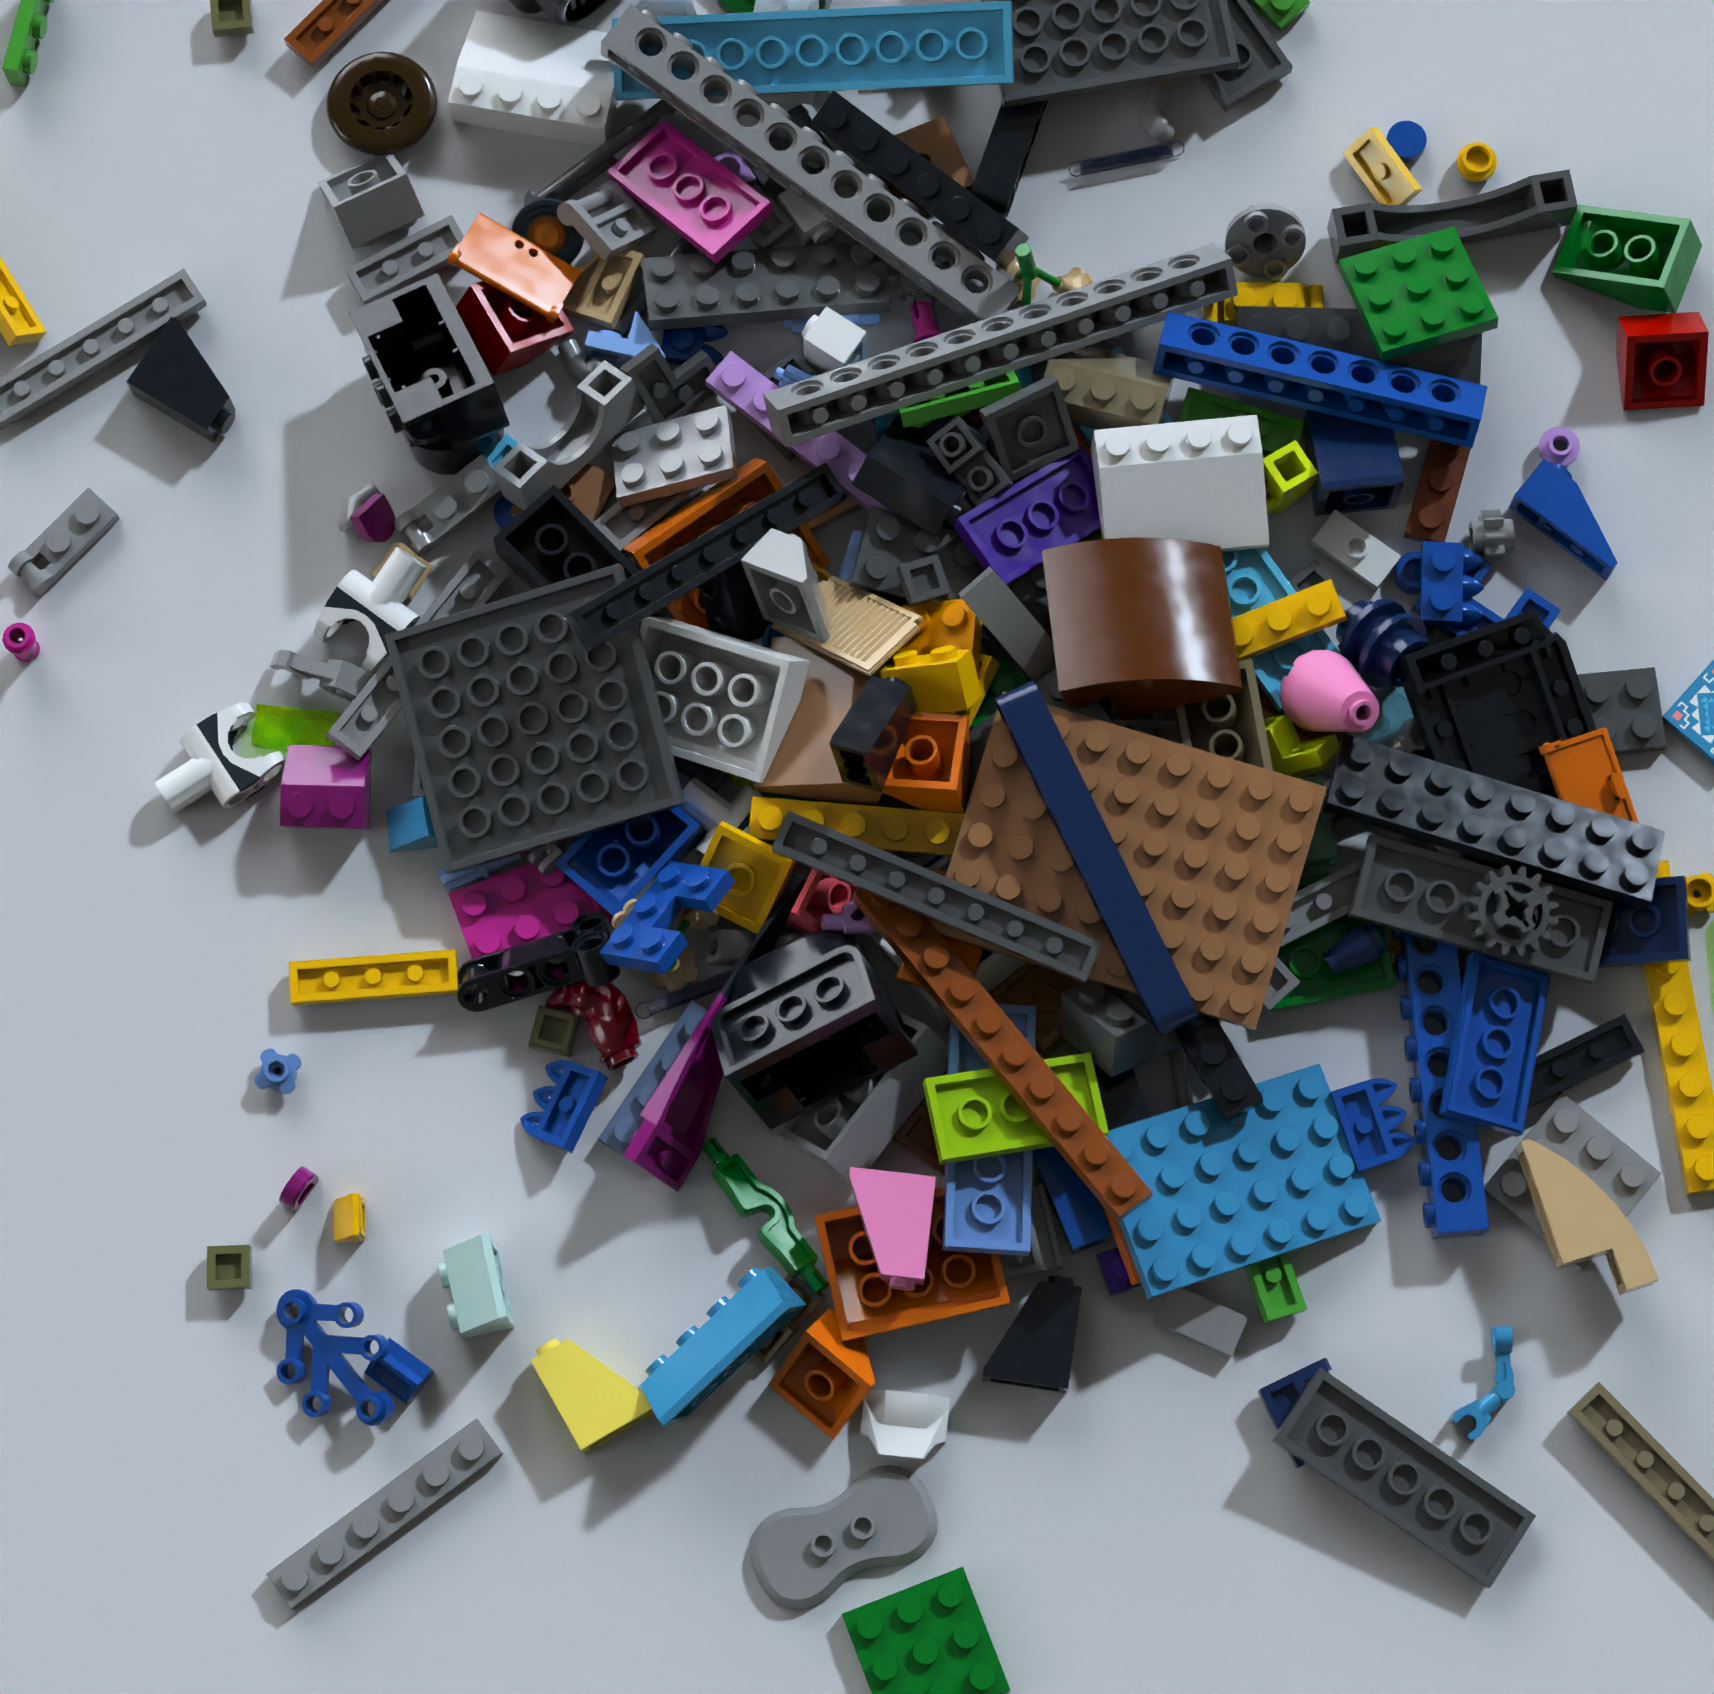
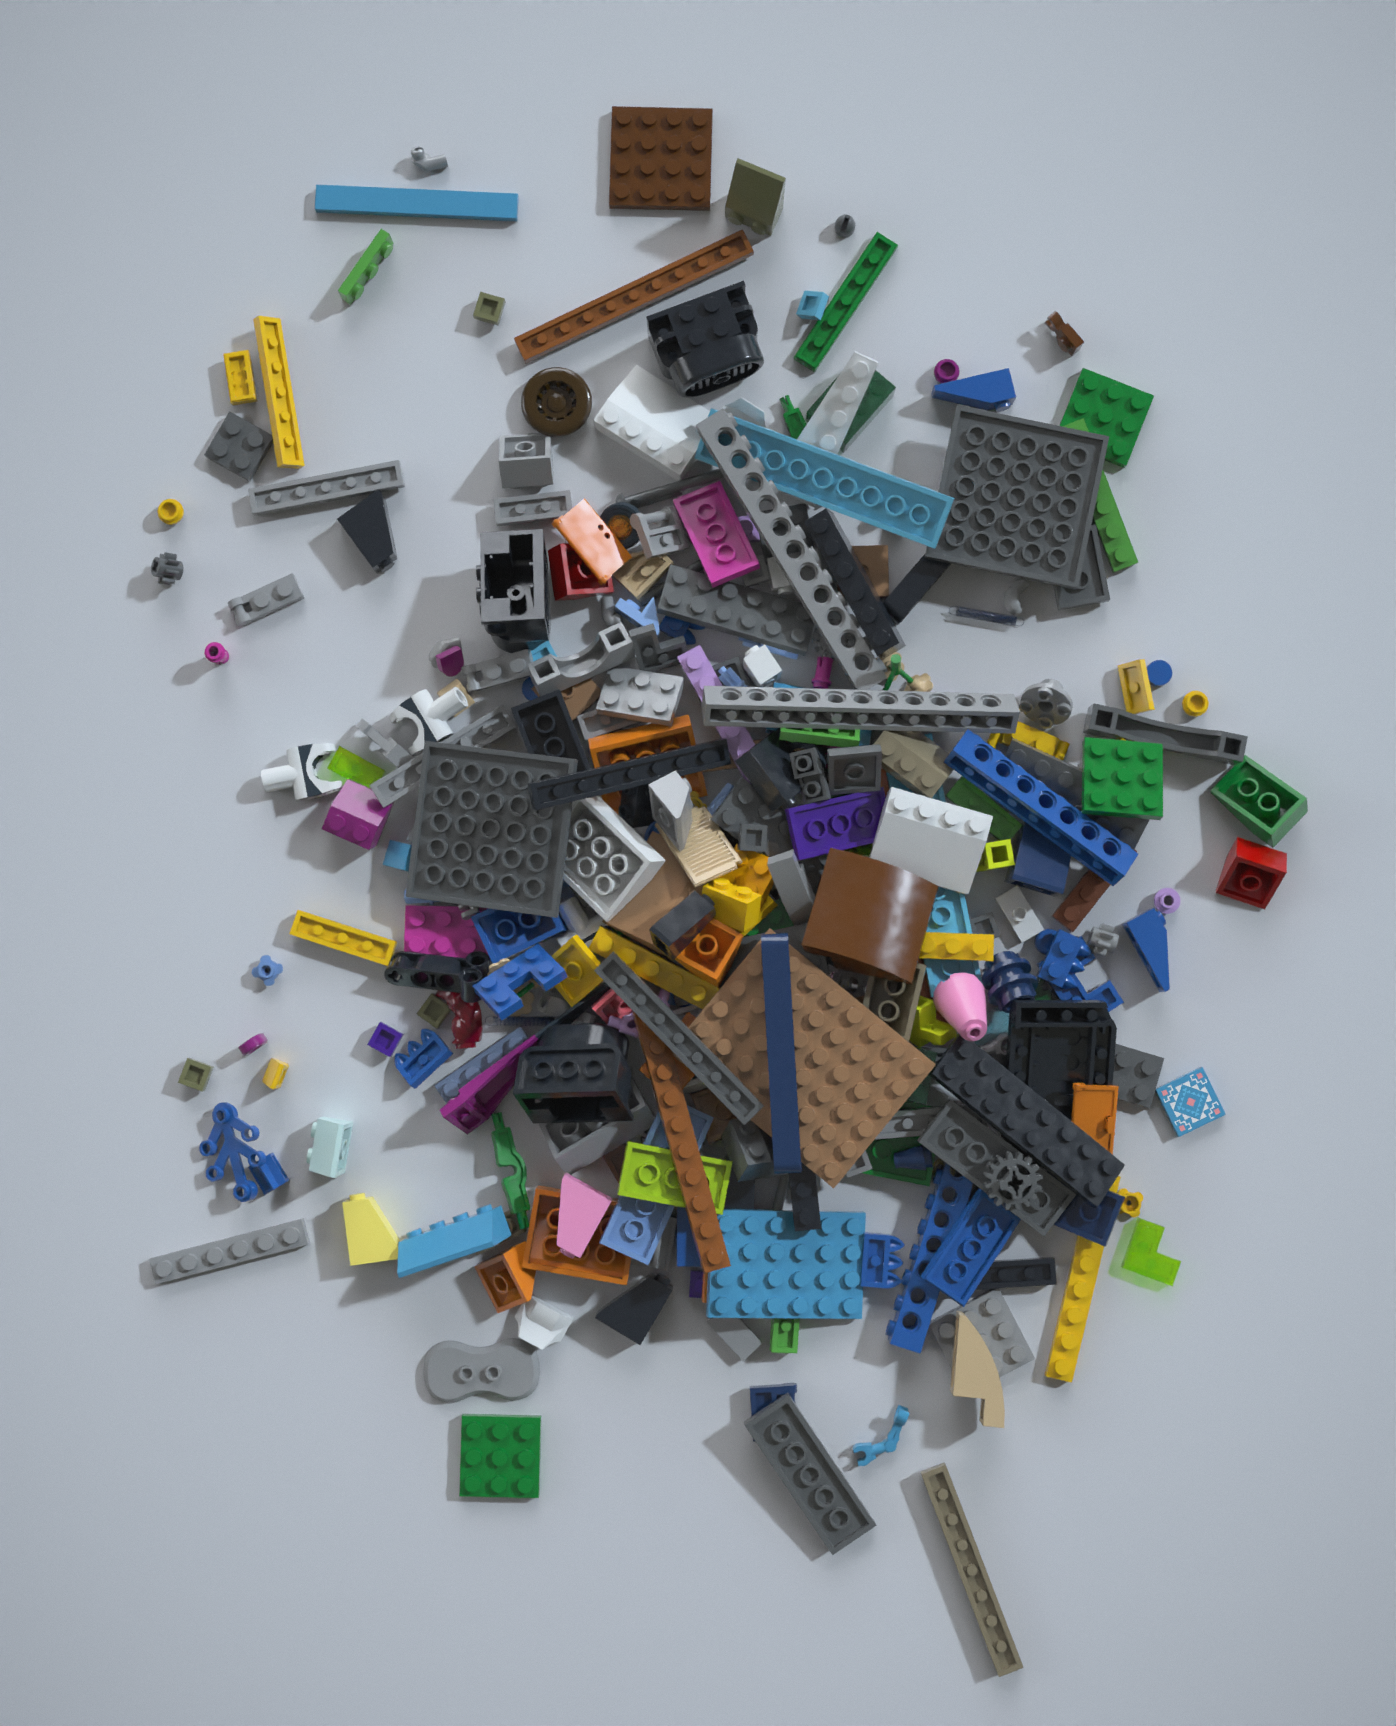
camera: 25 degrees right, 10 degrees up
(497, 1099) = (385, 1039): none -> dark purple plate

